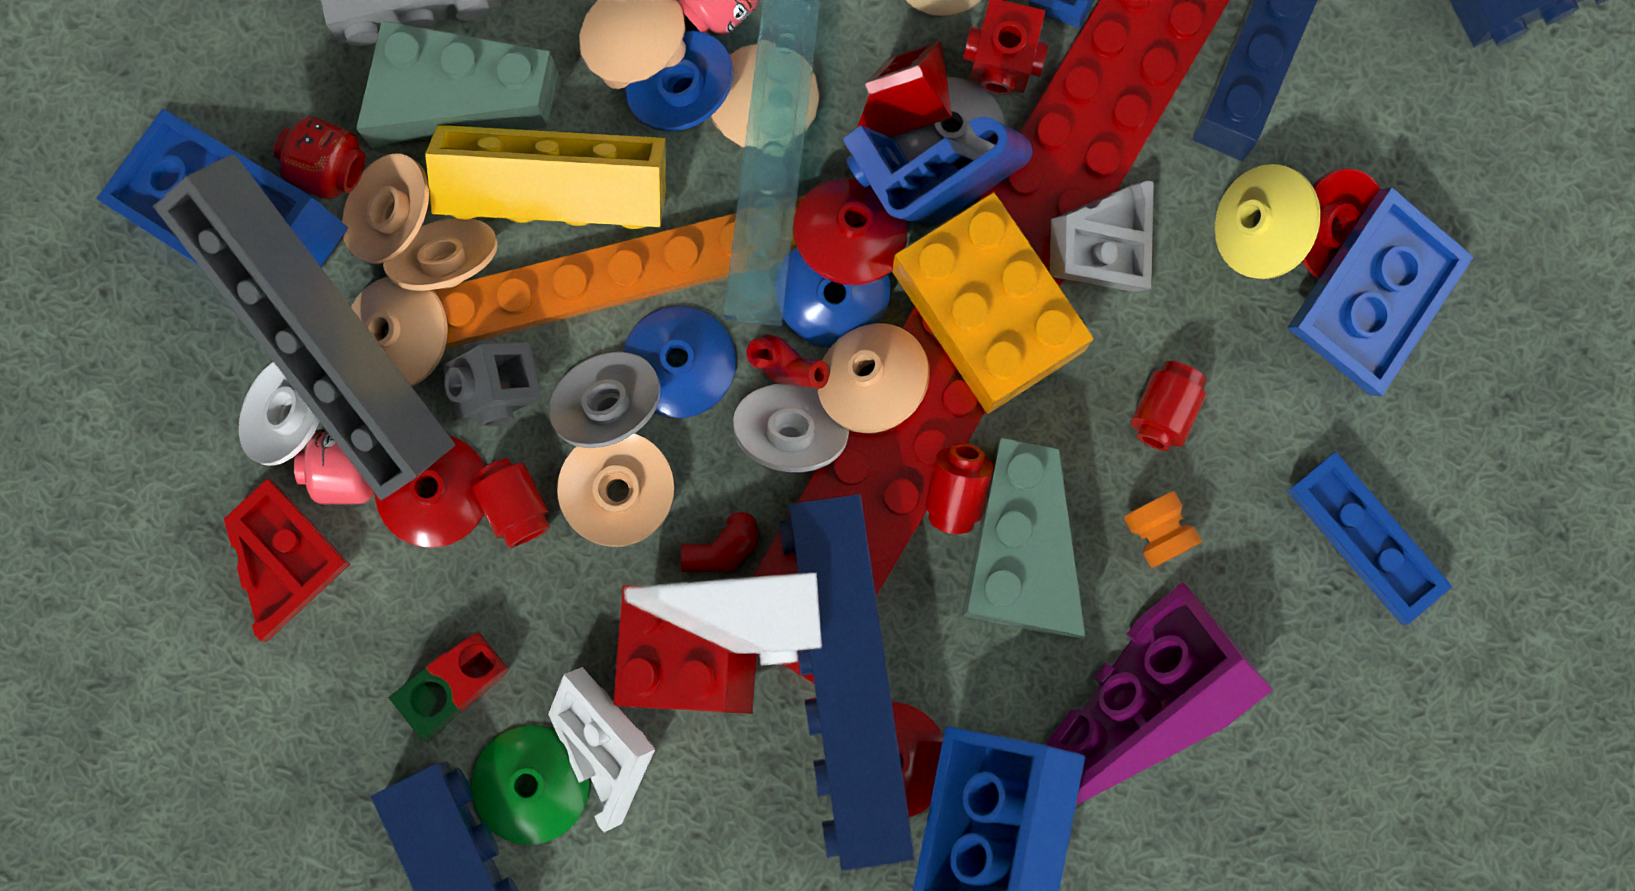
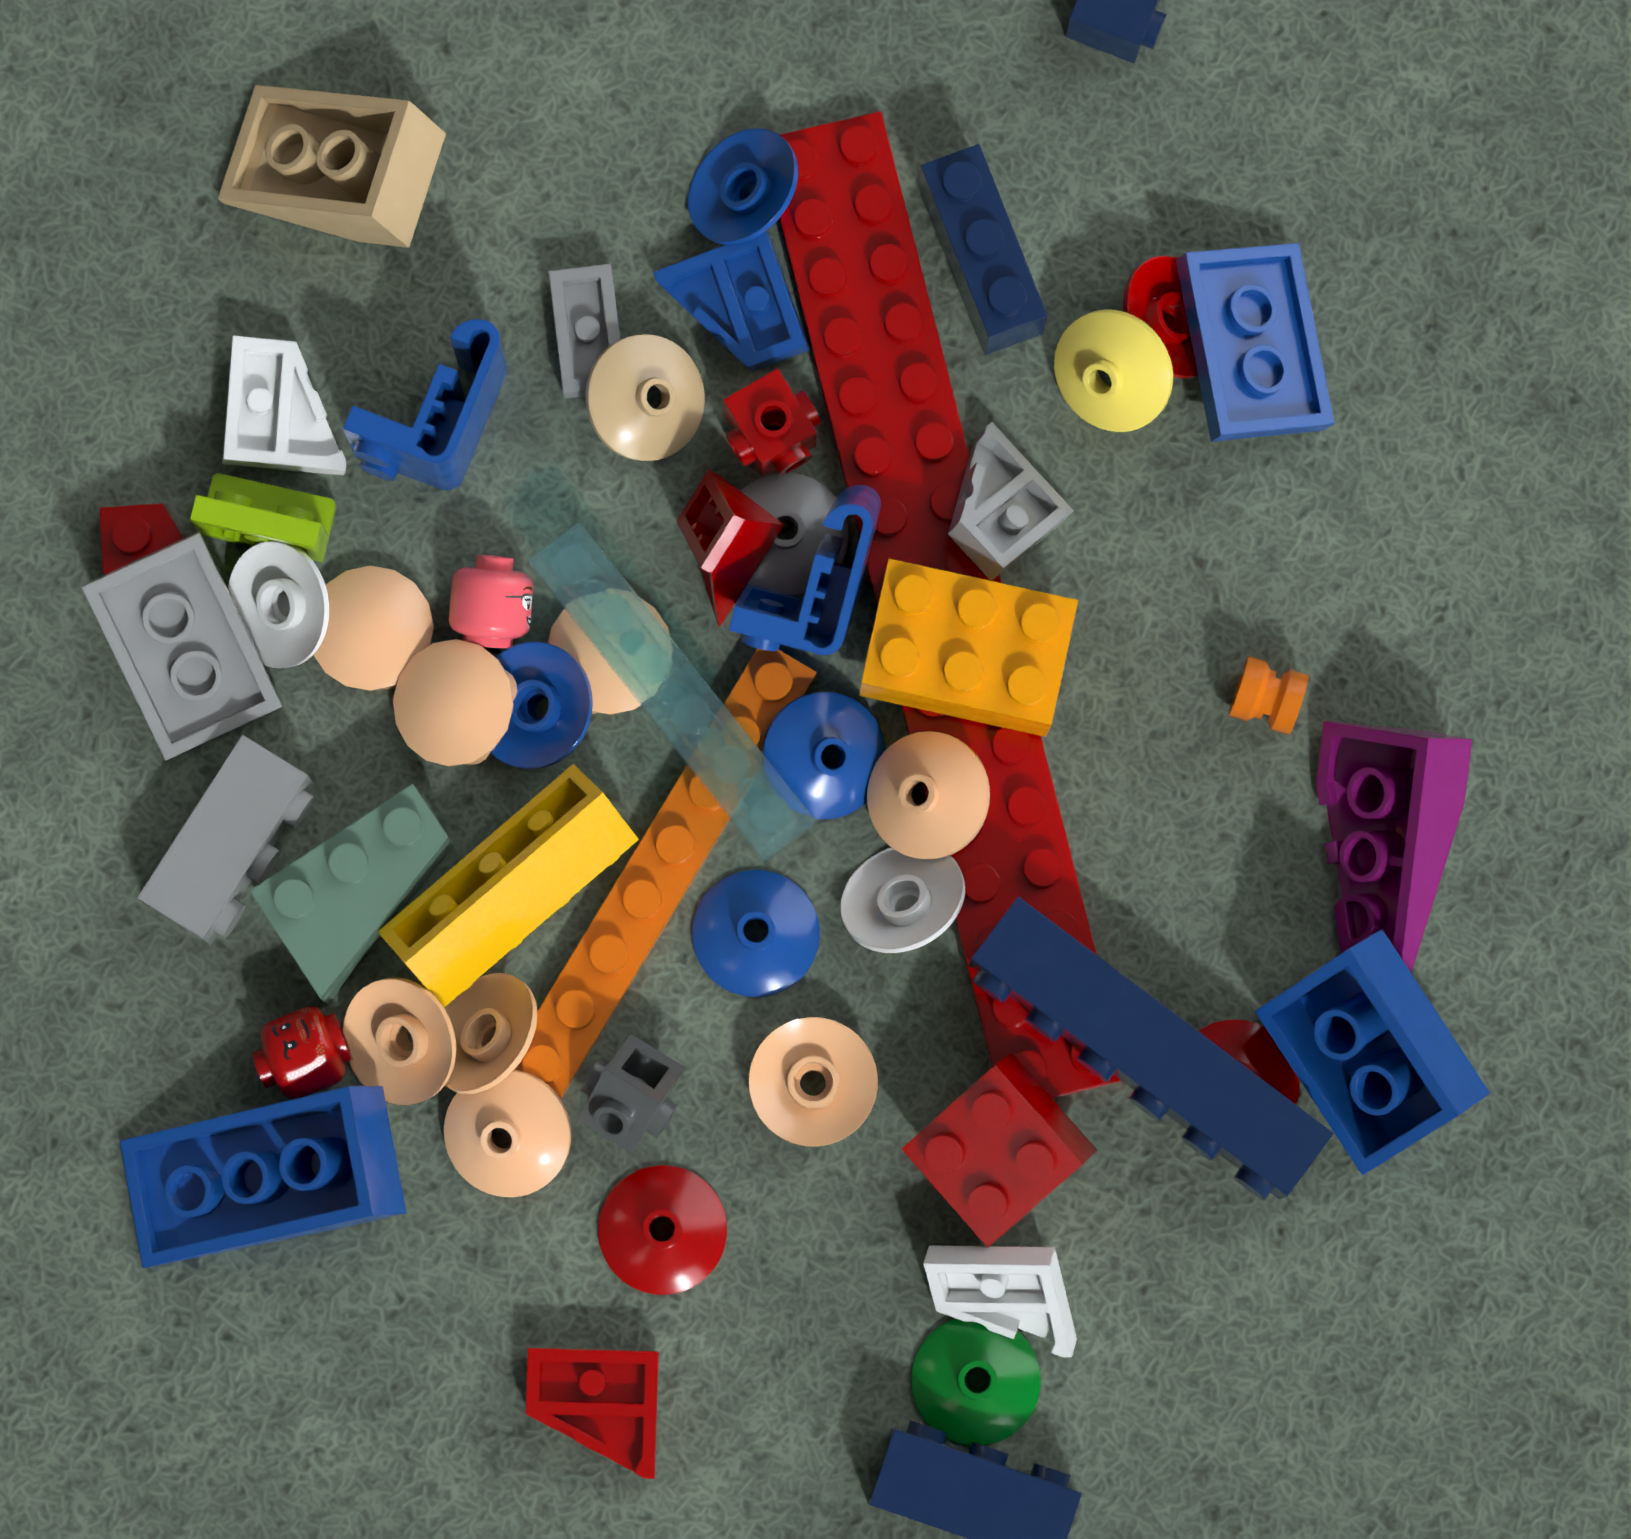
camera: 50 degrees left, 0 degrees up
(274, 419) = (464, 1284): white dish -> none
(304, 324) = (459, 1189): dark grey brick -> none
(329, 473) = (577, 1279): coral head -> none
(448, 686) = (839, 1366): leg -> none
(511, 502) = (741, 1174): red brick -> none
(604, 400) = (714, 1013): light grey dish -> none
(726, 551) = (947, 1045): red arm -> none
(742, 614) = (1028, 1071): white slope -> none
(784, 364) = (846, 852): red arm -> none
(837, 249) = (795, 721): red dish -> none
(958, 488) = (1082, 817): red brick -> none
(1024, 546) = (1175, 812): sand green wedge -> none
(1169, 405) = (1179, 591): red brick -> none
(1369, 539) = (1431, 547): blue plate -> none

